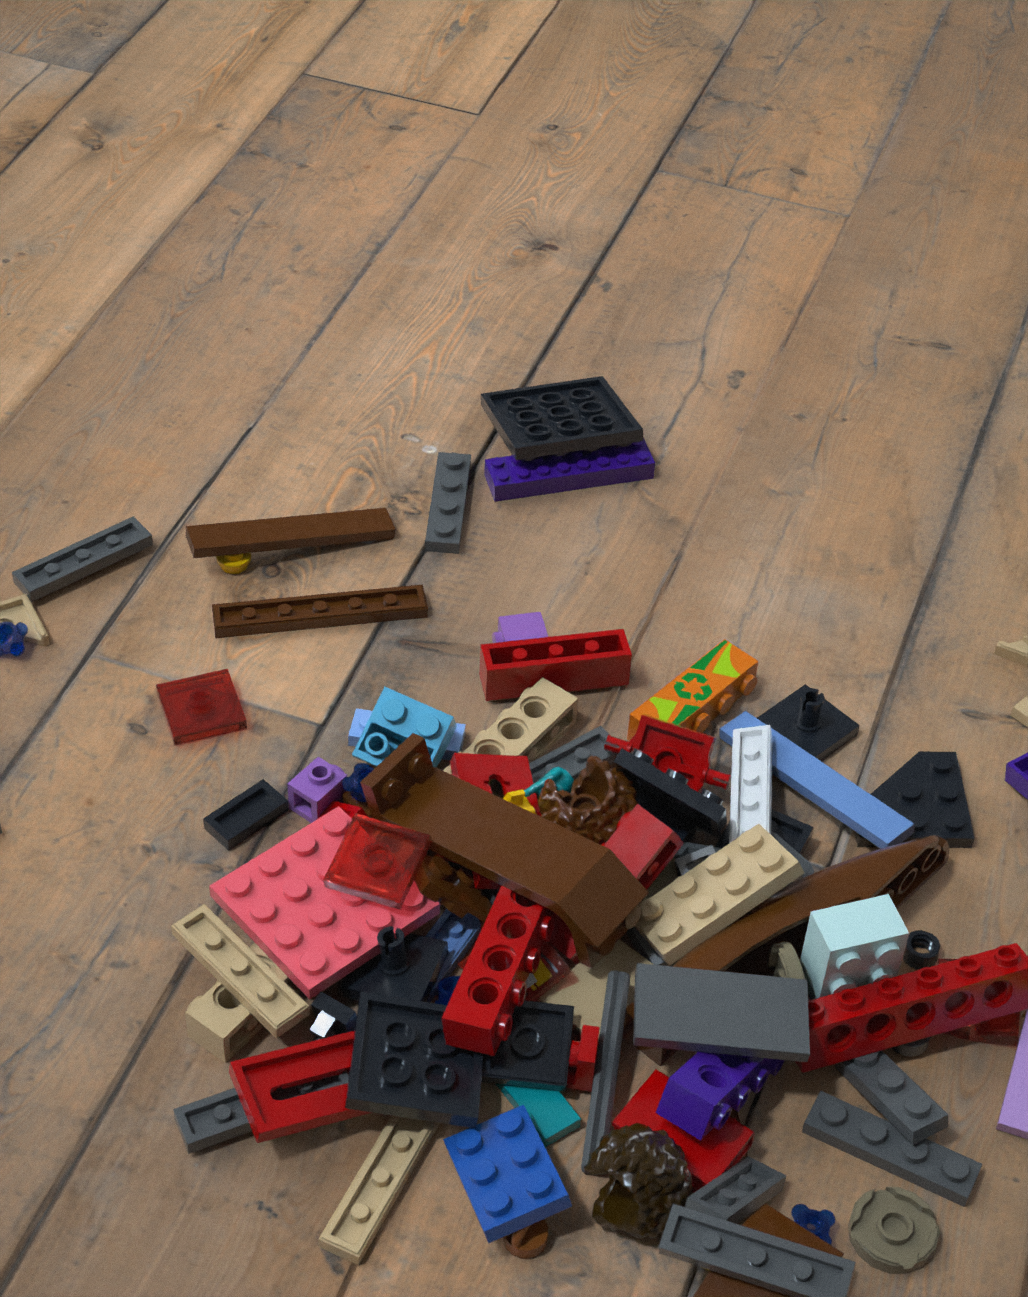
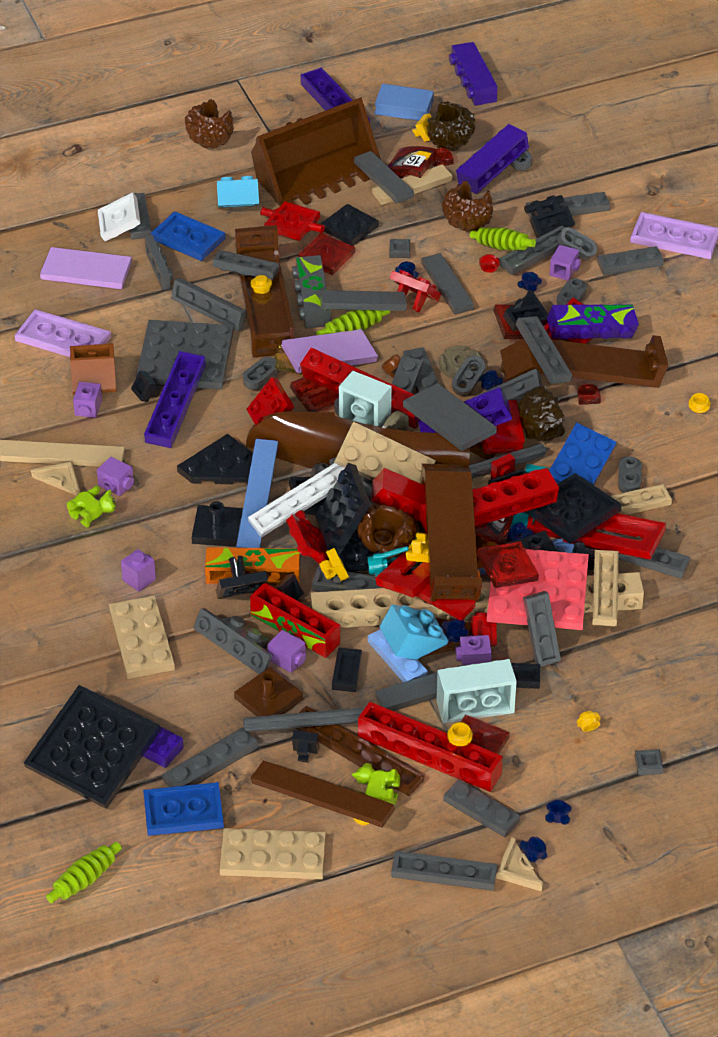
camera: 130 degrees left, 0 degrees up
(23, 696) = (555, 807): none -> clear blue plate
(91, 813) = (588, 721): none -> yellow plate
(116, 647) = (481, 808): none -> dark grey plate
(196, 638) = (460, 734): none -> yellow plate
(235, 641) = (429, 746): none -> red brick
(247, 579) = (378, 782): none -> lime animal
(251, 727) = (476, 691): none -> light aqua brick
(256, 839) = (541, 628): none -> dark grey plate
(275, 470) = (272, 853): none -> tan plate
(330, 718) = (408, 692): none -> dark grey tile
(374, 566) = (305, 744): none -> black tile
(400, 581) = (304, 719): none -> dark grey axle
(408, 442) = (183, 809): none -> blue plate
(416, 340) = (83, 872): none -> lime piece
(424, 1234) = (629, 474): none -> dark grey plate
(440, 680) = (346, 669): none -> black tile
(480, 594) = (268, 694): none -> reddish brown tile
(593, 741) = (333, 566): none -> yellow tile
(605, 614) = (236, 638): none -> dark grey bracket
(616, 702) = (290, 586): none -> black tile
(661, 648) = (240, 582): none -> black tile
(690, 558) = (141, 637): none -> tan plate
(791, 601) = (138, 570): none -> medium lavender brick
(838, 1190) = (467, 376): none -> dark grey plate
(953, 634) = (89, 506): none -> lime animal
(960, 1123) = (391, 364): none -> dark orange tile
(987, 682) = (115, 476): none -> medium lavender brick
(992, 894) = (269, 401): none -> red plate

